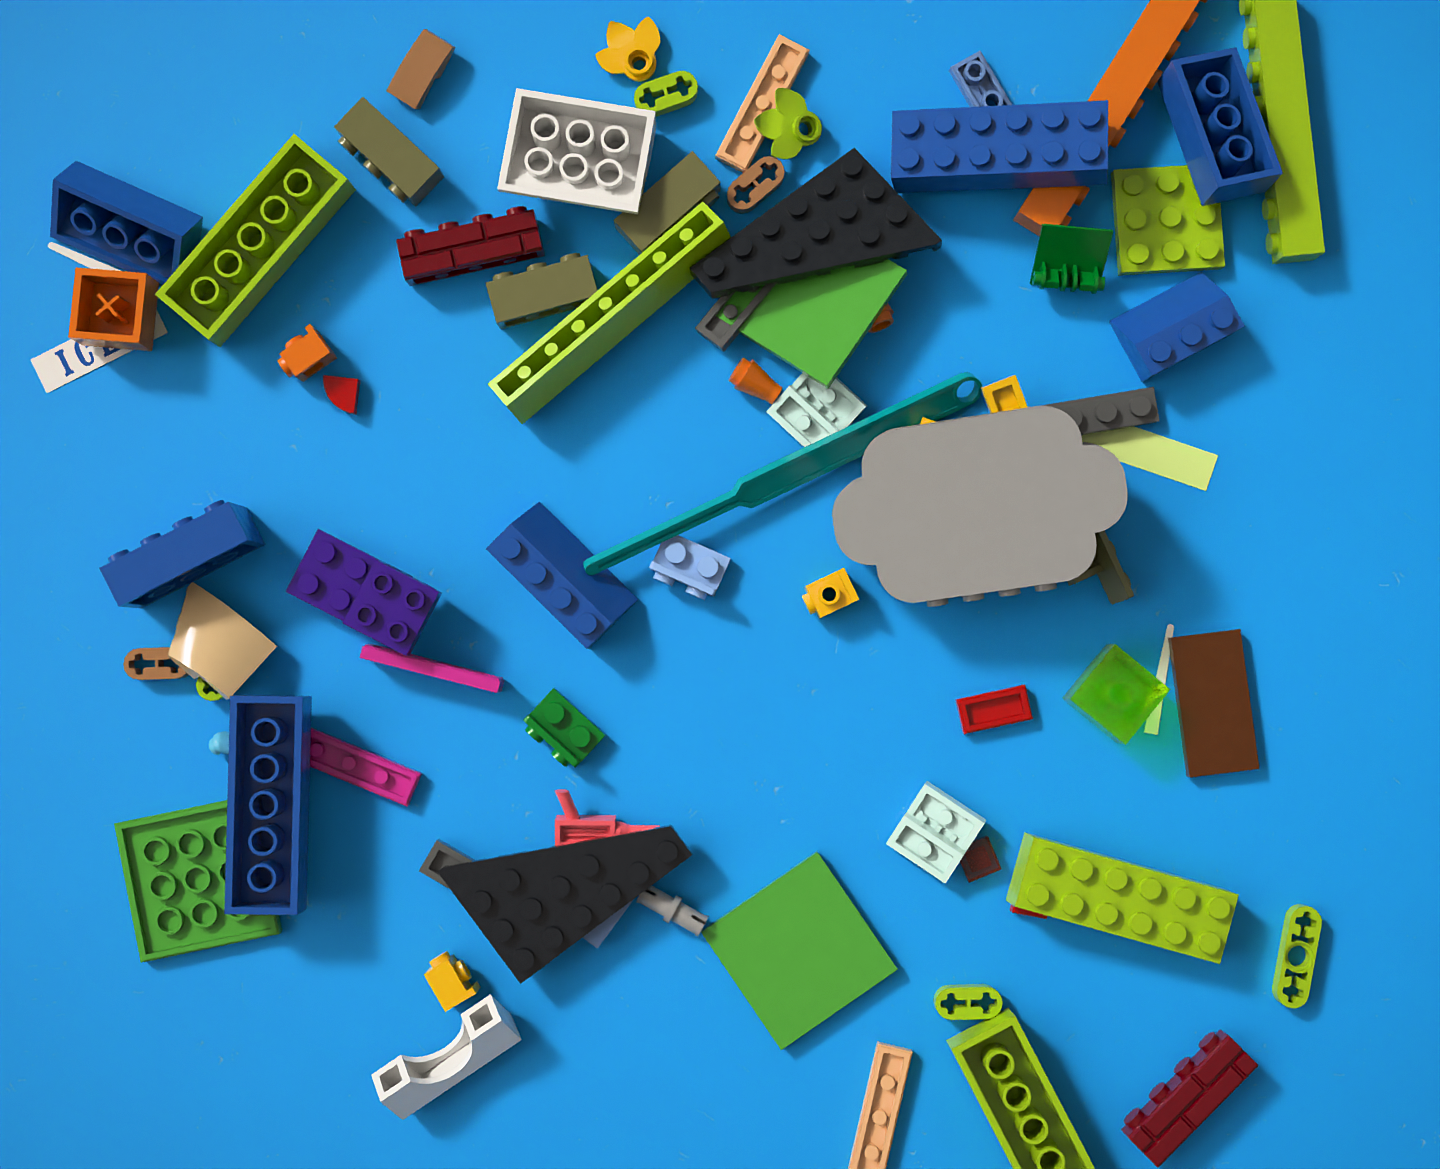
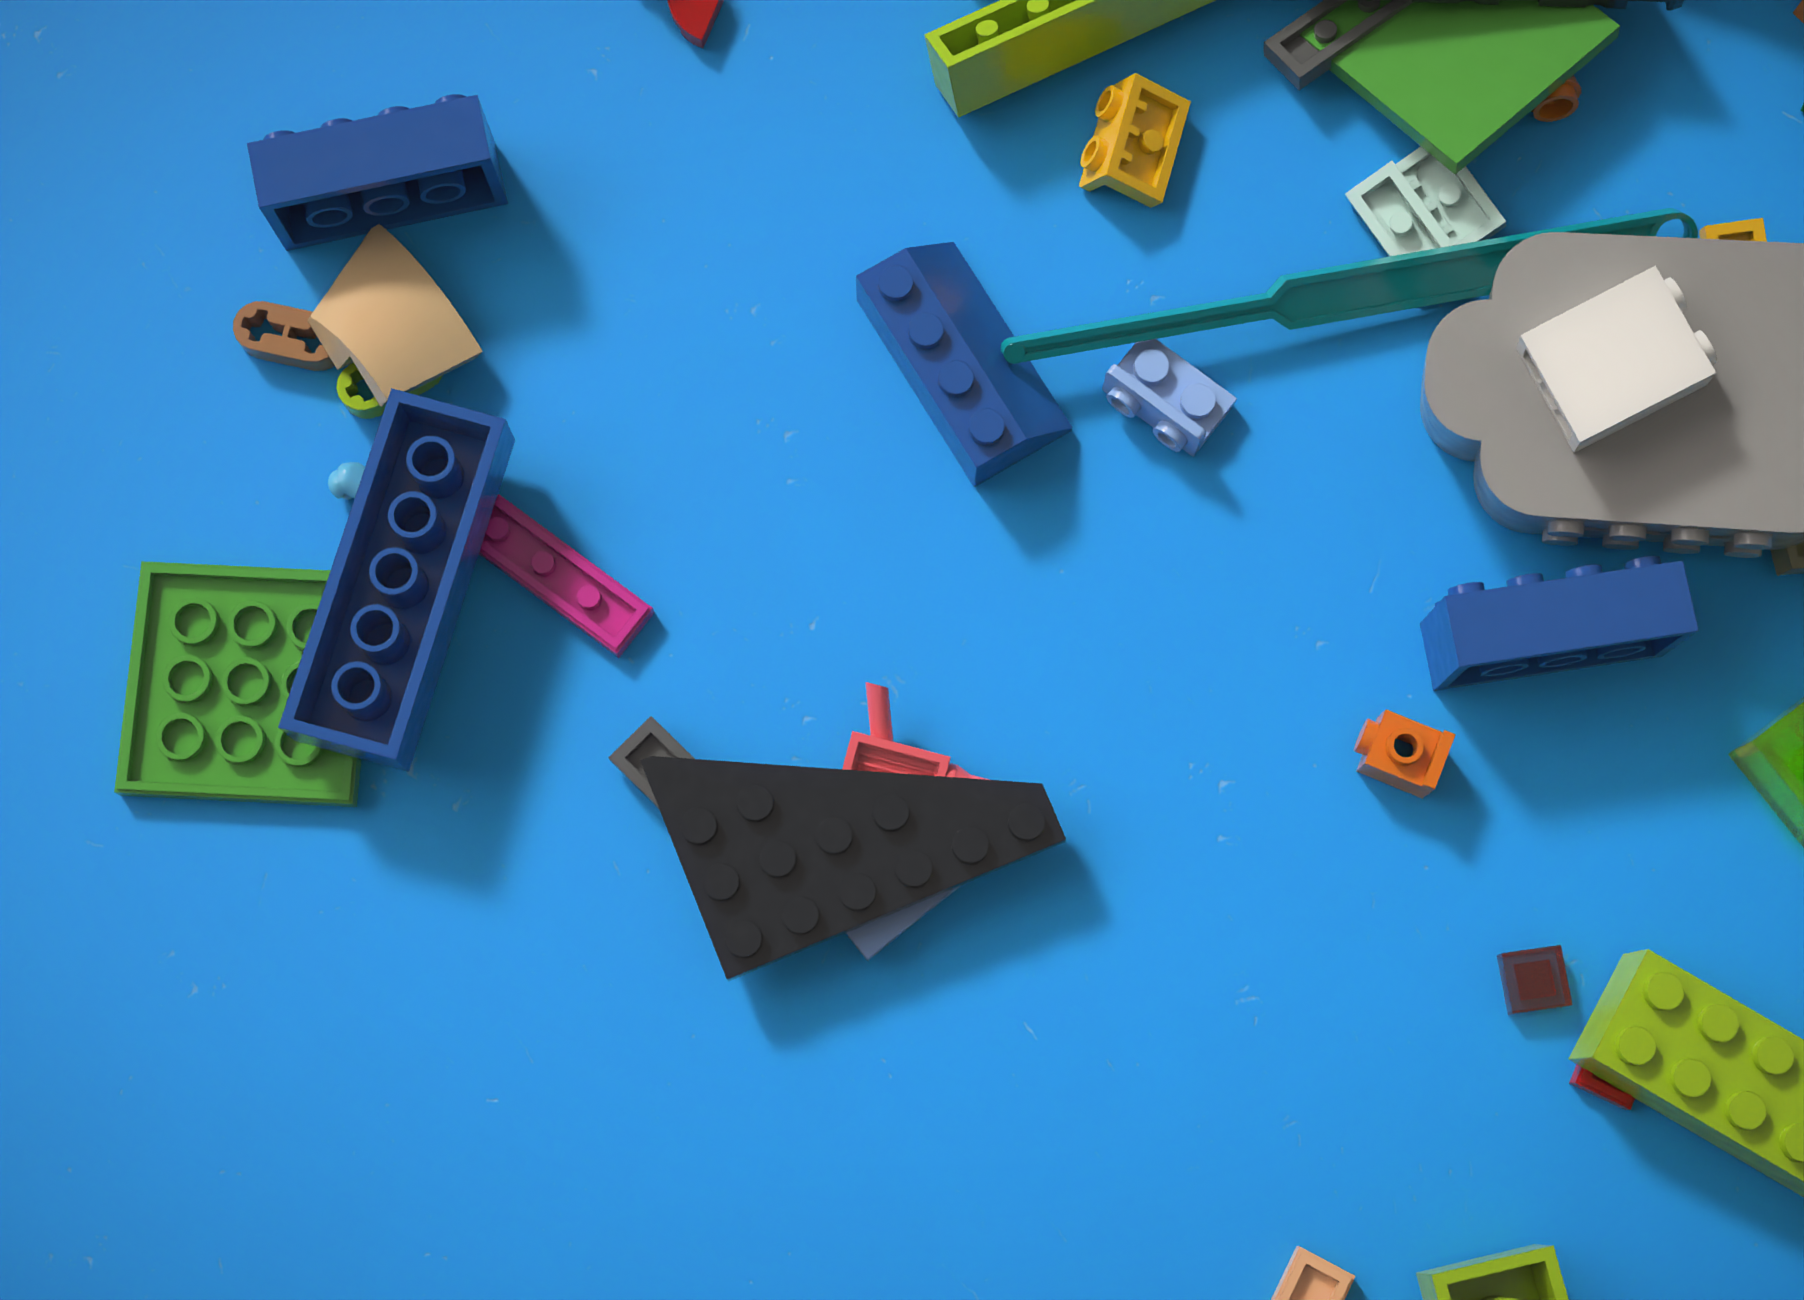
camera: 15 degrees right, 10 degrees down
(364, 592) = (647, 304): dark purple piece -> none
(414, 1081) = (504, 1102): white arch -> none
(432, 668) = (718, 446): dark pink tile -> none
(450, 980) = (610, 950): yellow brick -> none
(563, 728) = (903, 596): green bracket -> none
(631, 411) = (1134, 139): none -> yellow bracket
(673, 909) = (1007, 930): light grey pin -> none
(753, 380) = (1337, 143): orange cone -> none
(799, 950) = (1201, 1055): bright green tile -> none
(839, 583) = (1372, 509): yellow brick -> none
(888, 752) = (1411, 774): none -> orange brick
(936, 832) = (1475, 915): light aqua slope -> none
(942, 505) = (1617, 358): none -> white brick
(947, 655) = (1558, 623): none -> blue brick
(967, 992) = (1464, 1230): lime beam -> none
(994, 709) = (1611, 743): red tile -> none

